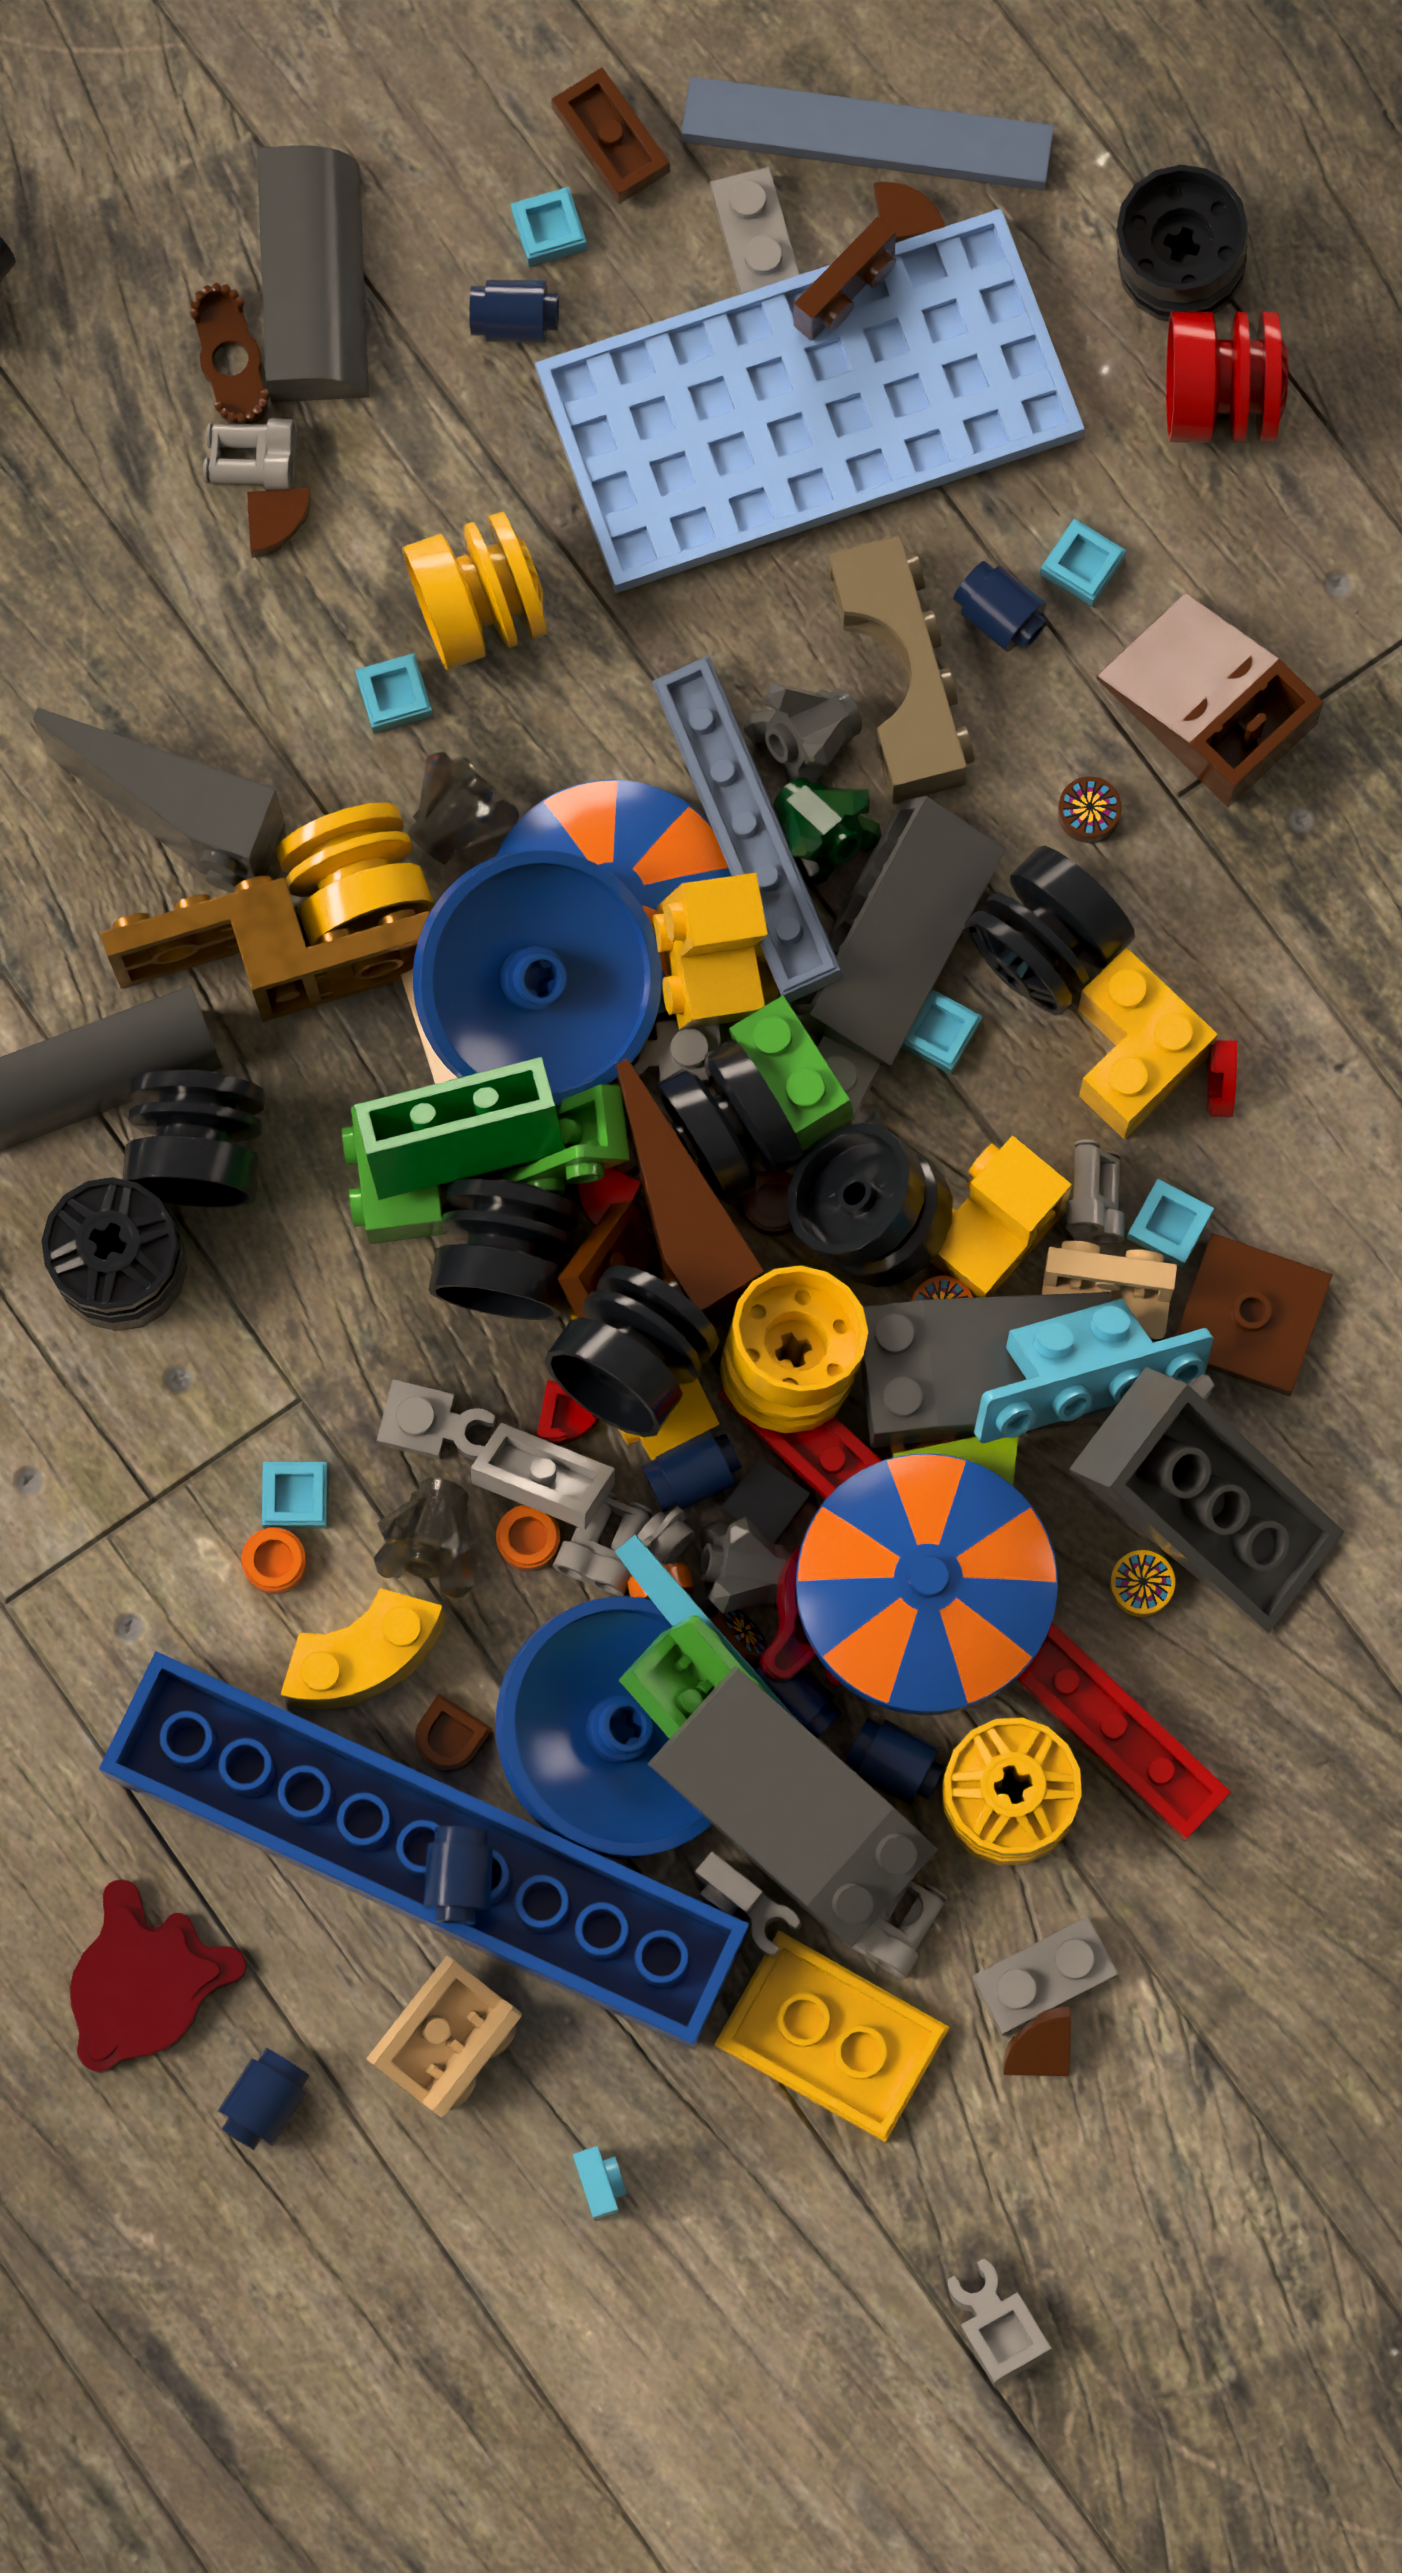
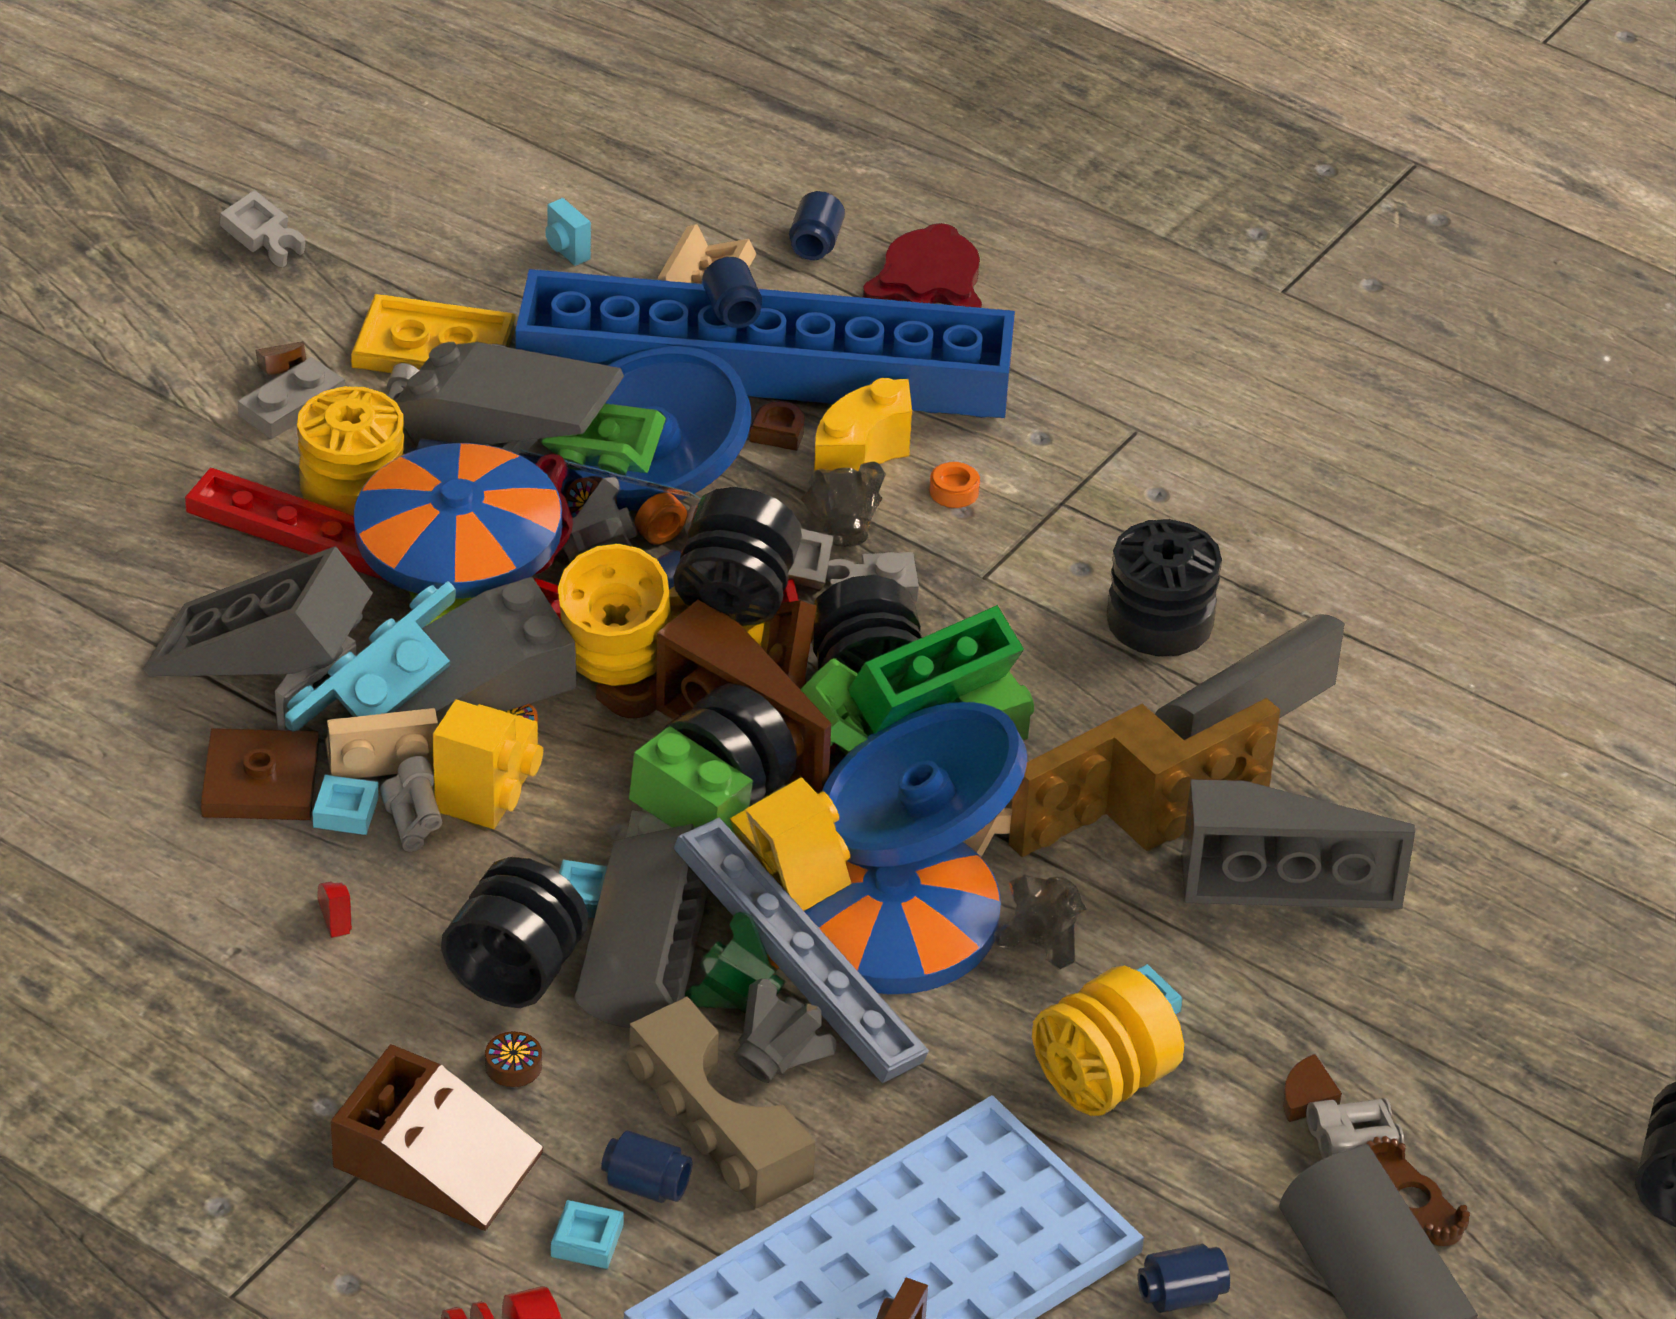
camera: 155 degrees right, 35 degrees down
(194, 1128) = (1139, 648): black wheel -> none
(295, 1495) = (958, 520): medium azure tile -> none
(352, 870) = (1103, 832): yellow wheel -> none
(667, 1536) = (668, 536): light grey plate -> none
(869, 1205) = (591, 725): black wheel -> none
(1153, 1037) = (406, 896): yellow brick -> none

